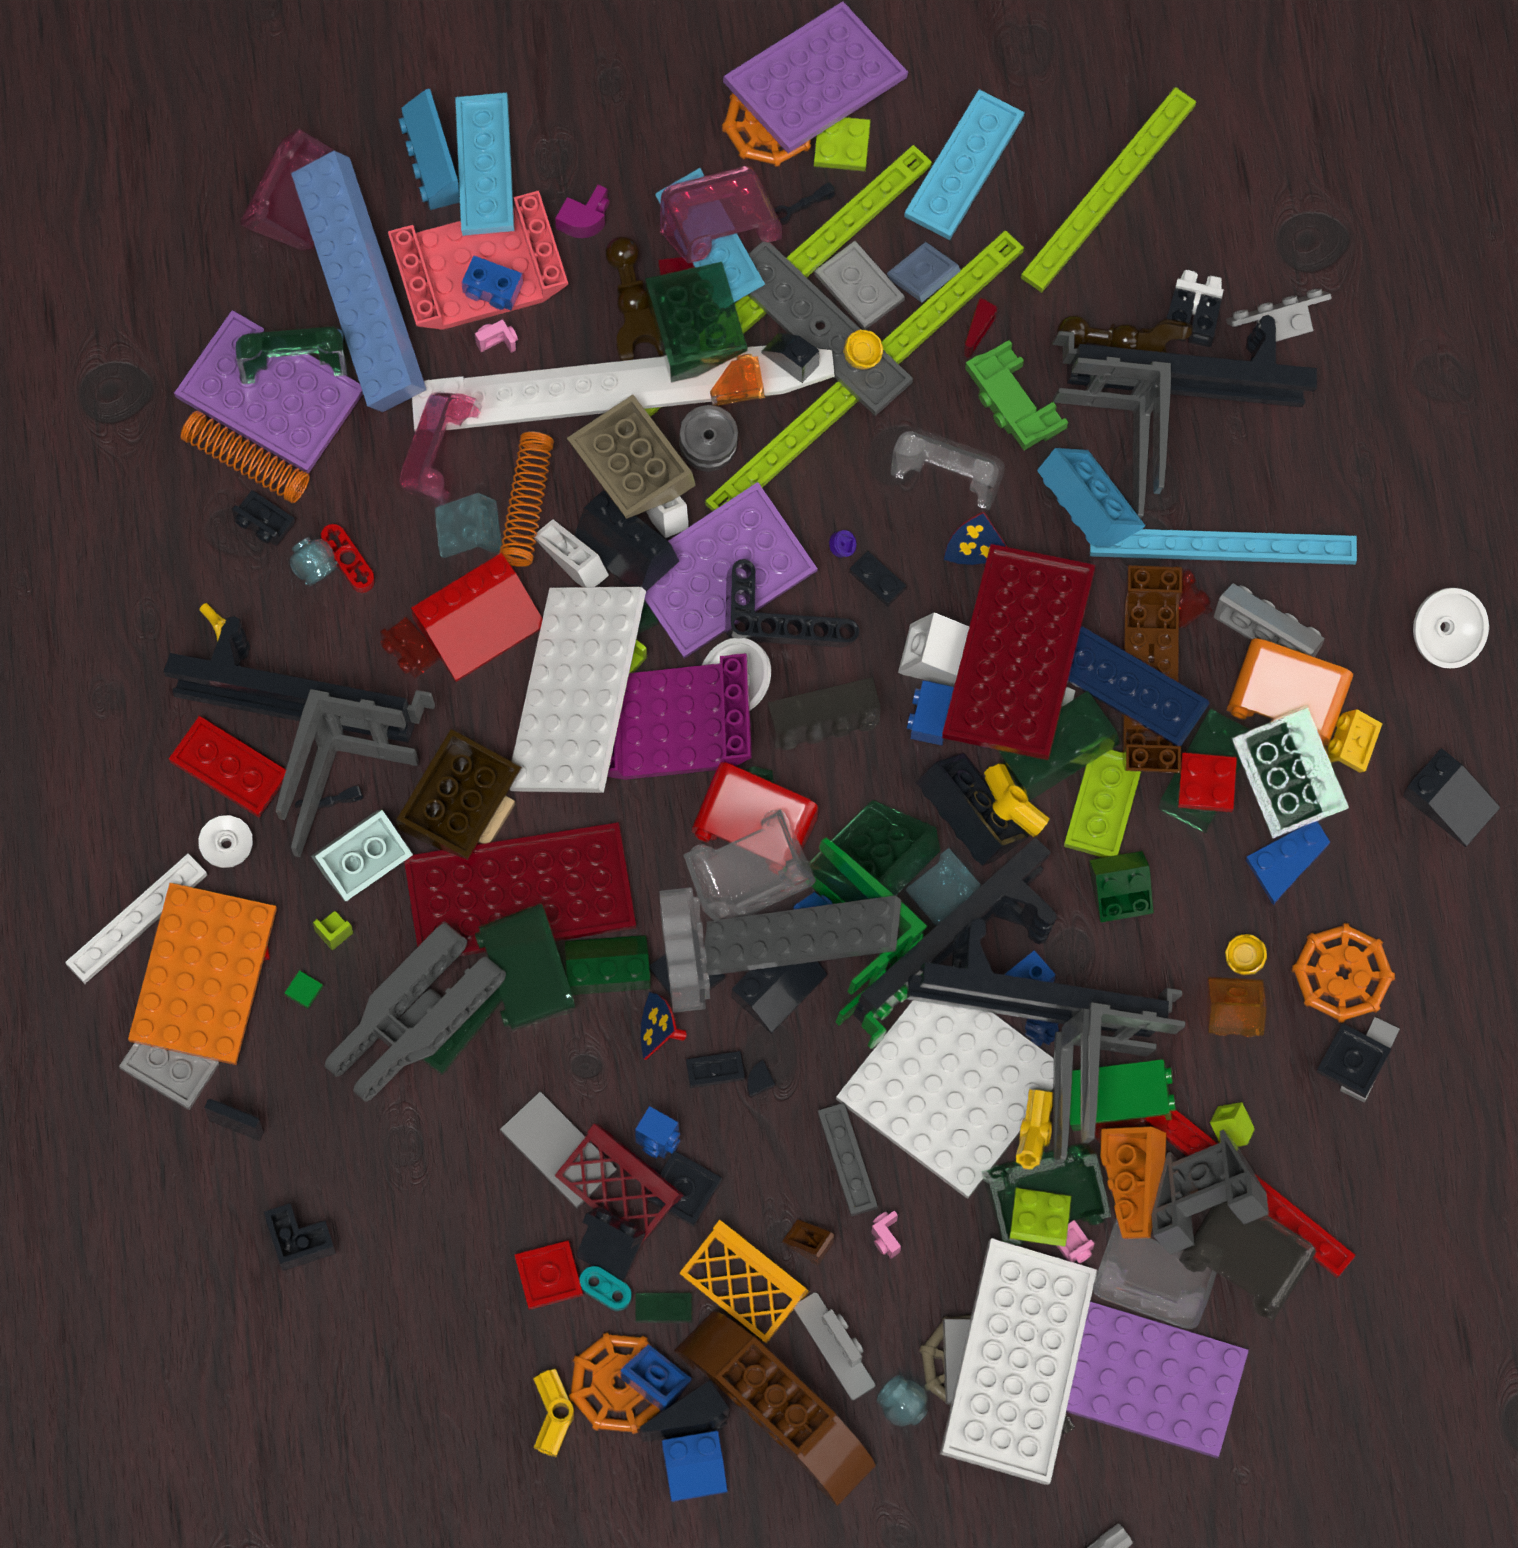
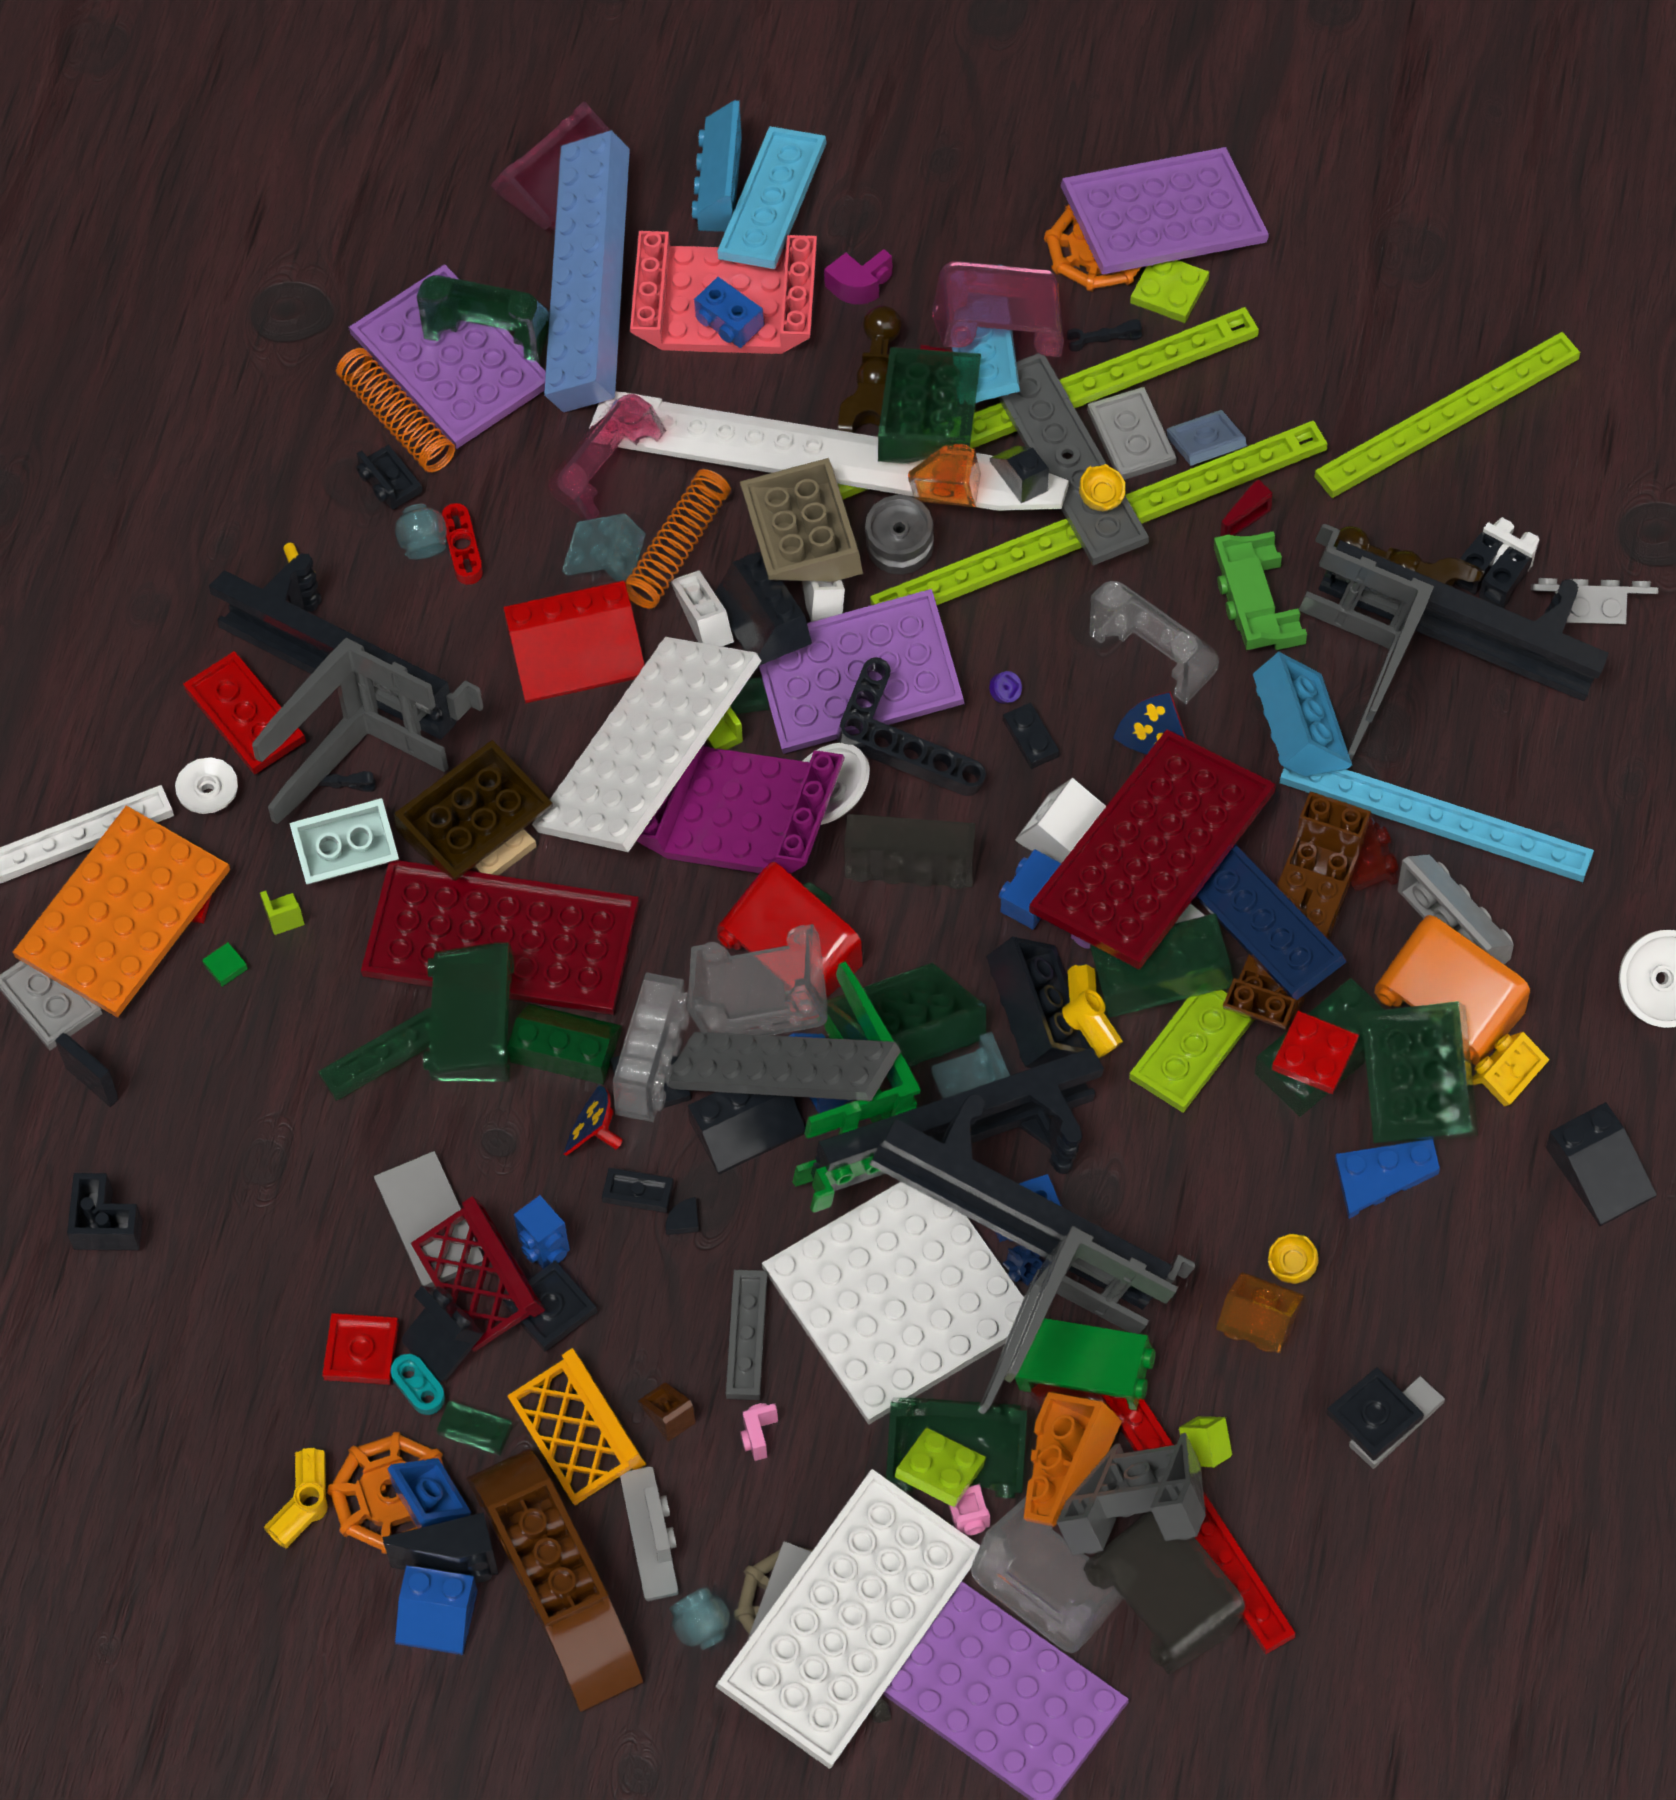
camera: 25 degrees right, 10 degrees down
(409, 647) = (489, 652): clear red bracket -> none
(426, 1022) = (336, 1034): dark grey beam -> none
(493, 334) = (712, 367): bright pink bracket -> none
(964, 164) = (1295, 345): medium azure plate -> none
(1035, 1129) = (973, 1368): yellow piece -> none
(1121, 886) = (1177, 1140): dark green slope -> none
(1349, 958) = (1404, 1298): orange plate -> none

